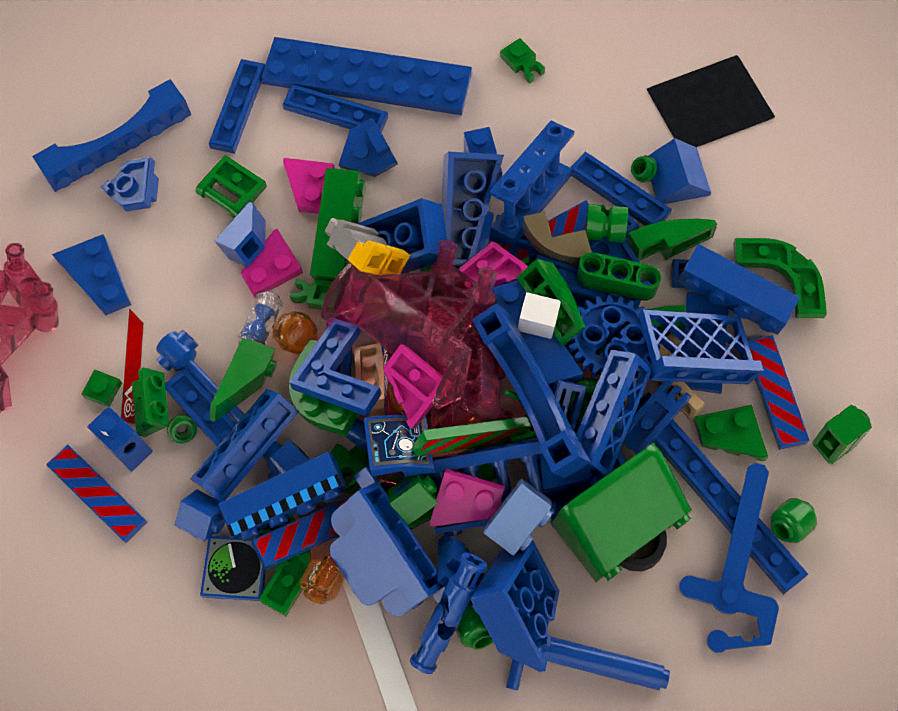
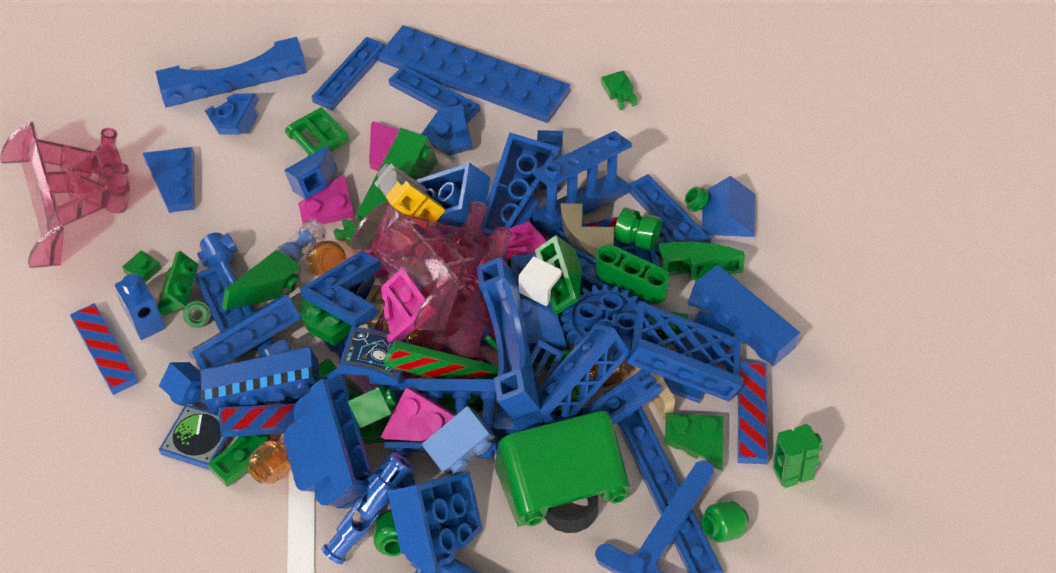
camera: 15 degrees right, 15 degrees down
(132, 365) = (181, 245): red sticker -> none
(710, 102) = (784, 161): black sticker -> none
(784, 258) = (803, 303): green plate -> none

